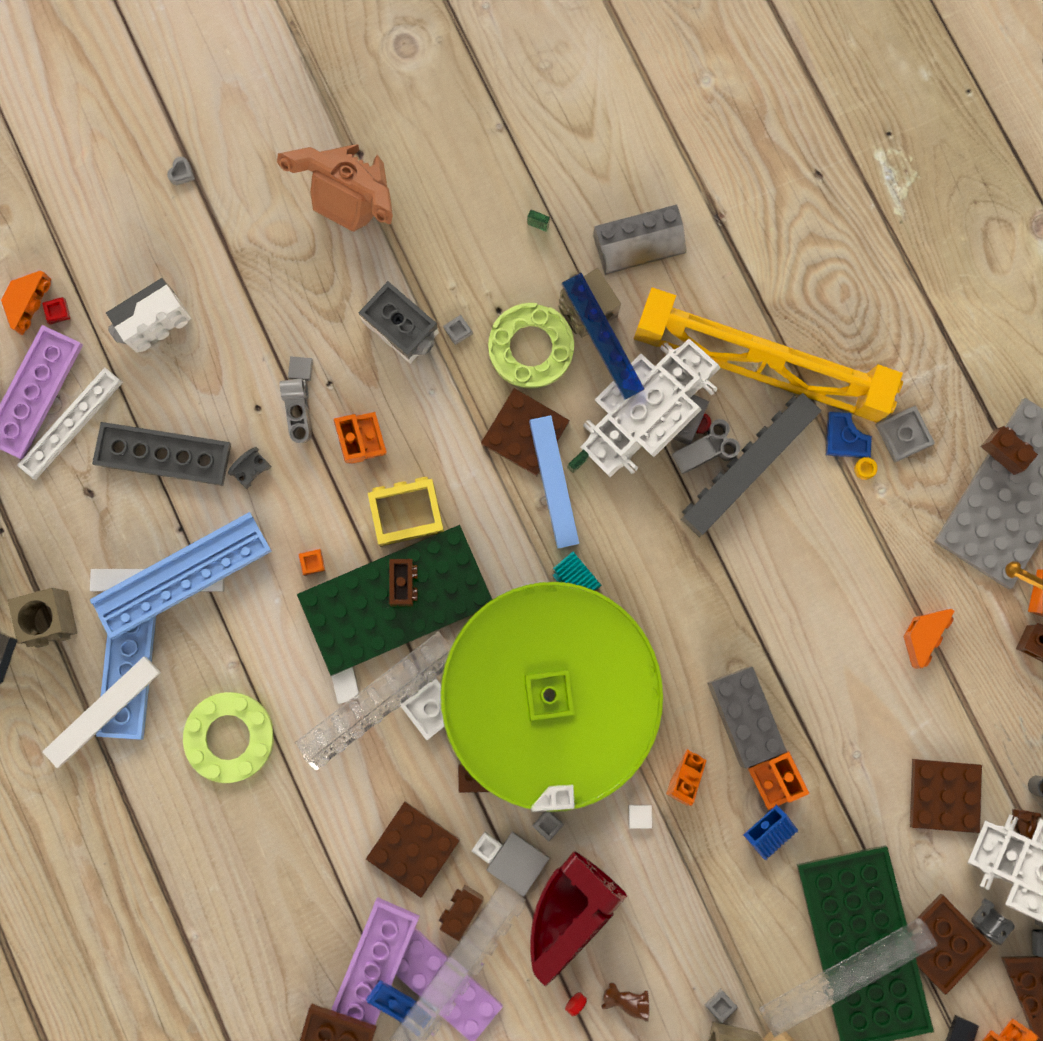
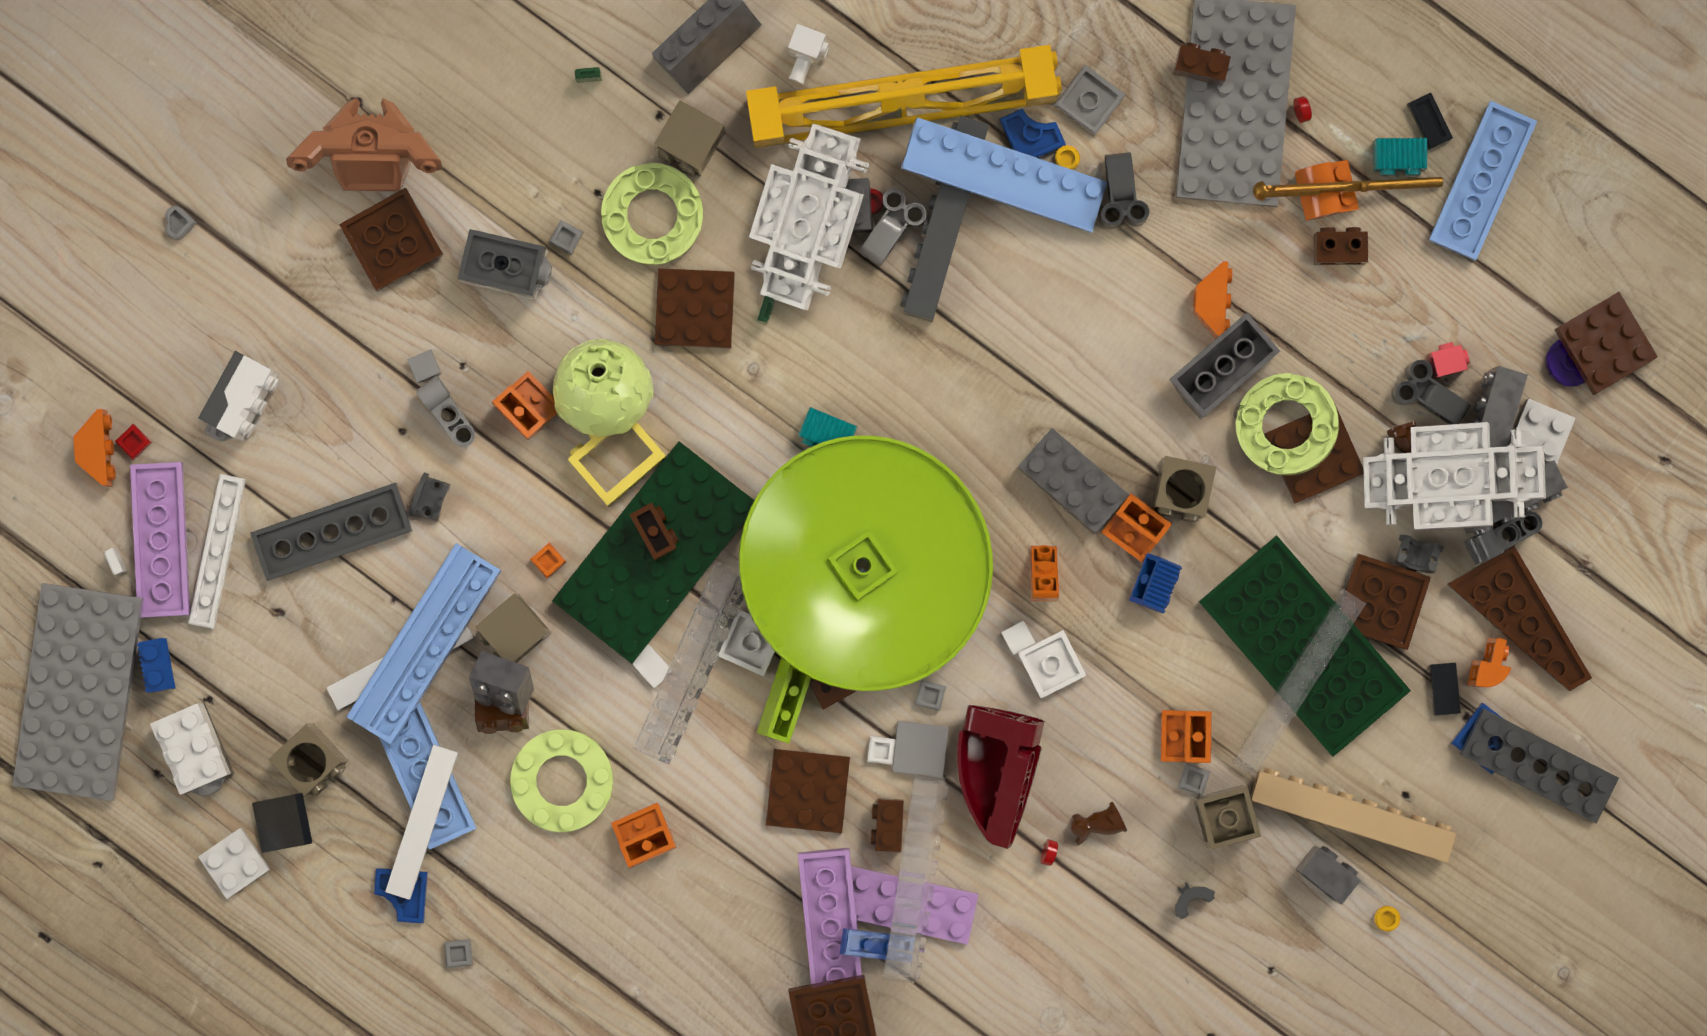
camera: 25 degrees left, 5 degrees up
(60, 776) = (407, 910): none -> blue tile
(74, 830) = (458, 953): none -> light grey tile
(210, 659) = (492, 719): none -> reddish brown brick
(219, 637) = (501, 683): none -> flat silver brick
(253, 600) = (512, 629): none -> dark tan brick
(266, 816) = (643, 835): none -> orange brick
(327, 263) = (391, 239): none -> reddish brown plate
(418, 463) = (606, 402): none -> yellowish green piece
(429, 771) = (783, 703): none -> lime brick
(554, 482) = (752, 345): light blue tile -> none
(555, 798) = (922, 662): white tile -> none
(602, 336) = (723, 170): clear blue tile -> none
(656, 852) = (1051, 664): none -> white plate
(711, 284) = (808, 49): none -> white brick
(734, 970) = (1186, 736): none -> orange brick
(813, 453) = (1003, 175): none -> light blue plate
(852, 769) = (1203, 477): none -> dark tan brick
(896, 515) = (1122, 191): none -> dark grey piece
(911, 690) = (1224, 366): none -> flat silver slope
(962, 741) = (1287, 388): none -> yellowish green plate

